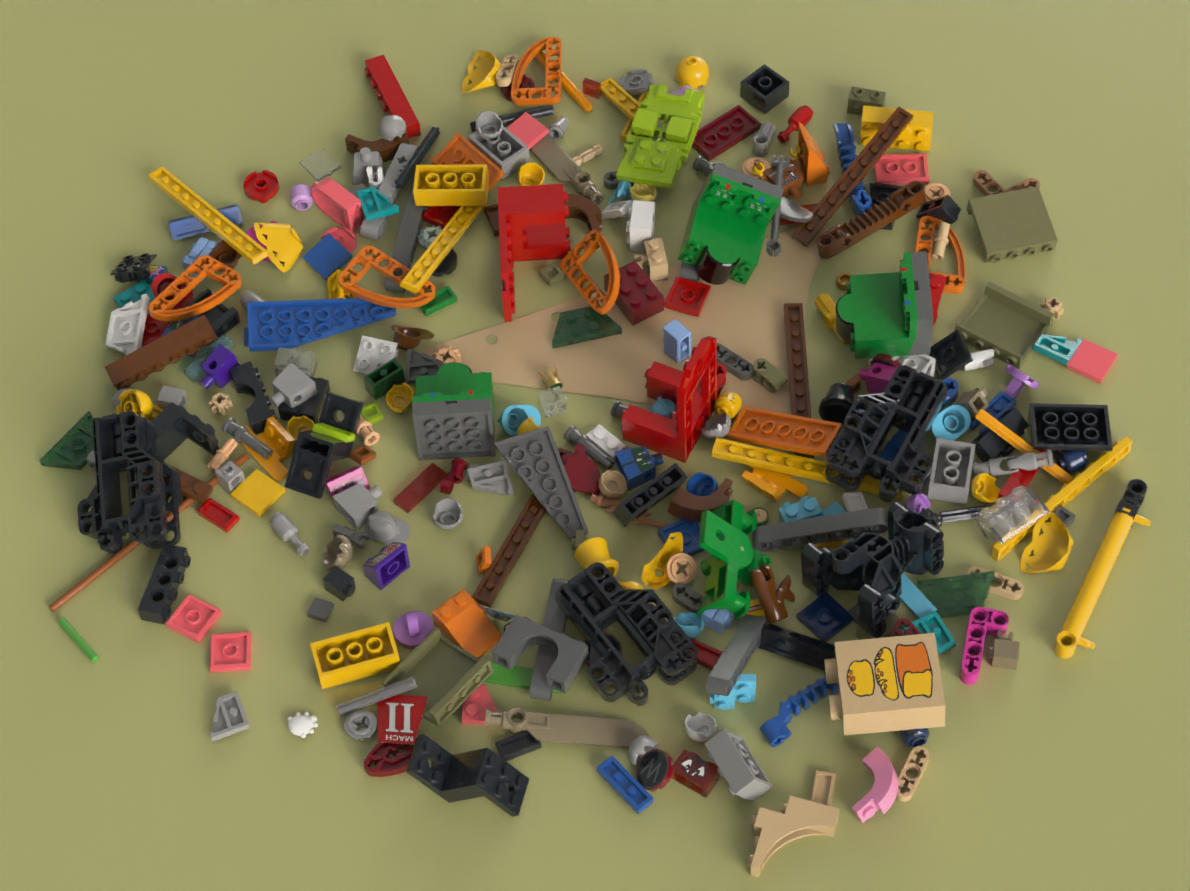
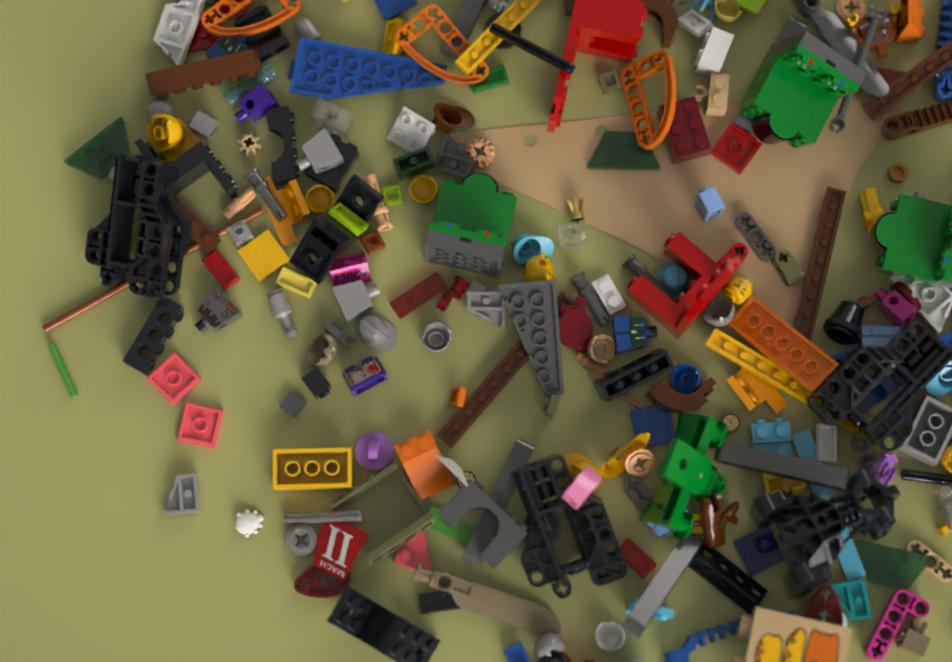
camera: 10 degrees right, 25 degrees up
(223, 548) = (216, 311): none -> dark grey torso
(297, 507) = (296, 282): none -> light yellow tile
(469, 246) = (532, 48): none -> black axle
(595, 551) = (561, 434): yellow hat -> none
(627, 581) = (582, 487): none -> bright pink arch
(690, 624) = (629, 525): medium azure hair -> none

